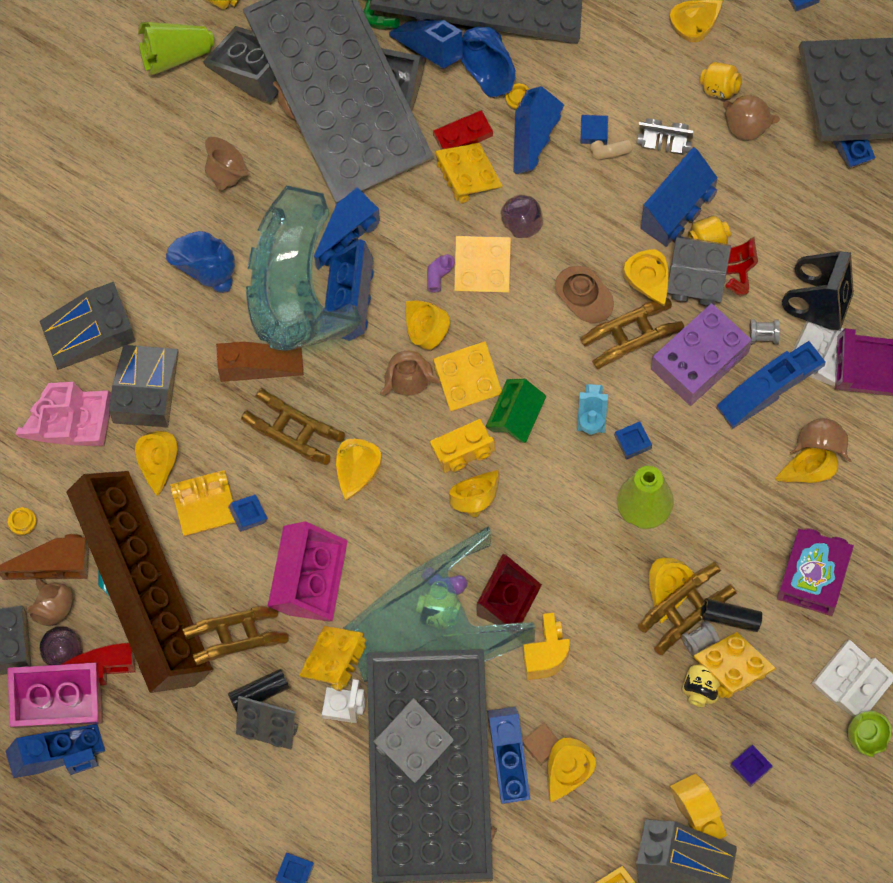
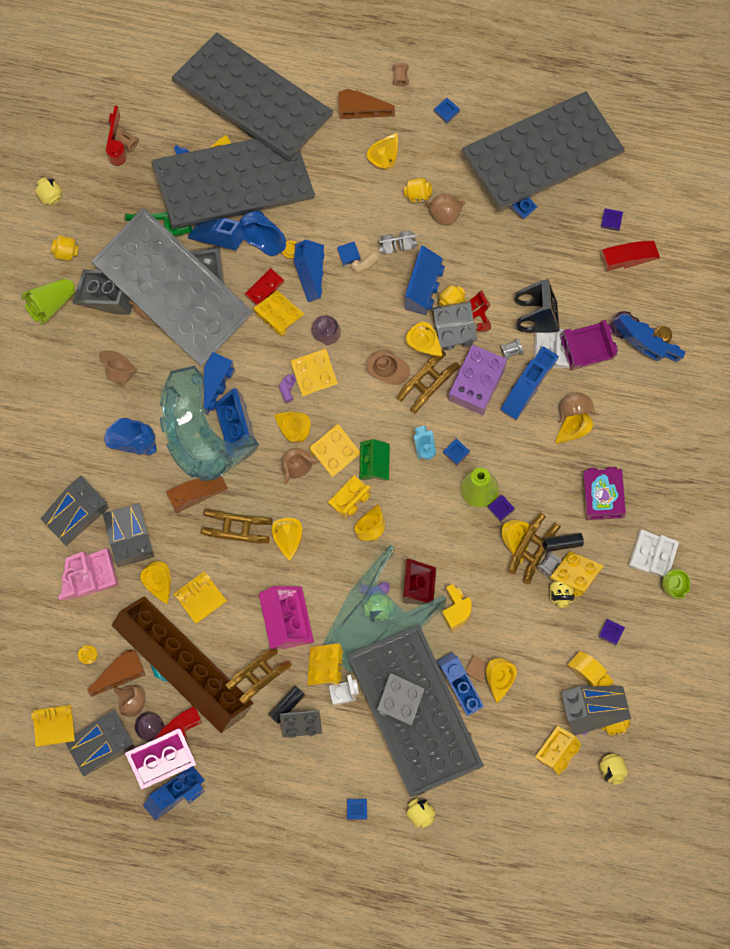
camera: 20 degrees left, 5 degrees up
(247, 512) = (231, 593): blue tile -> none
(664, 538) = (501, 508): none -> dark purple tile

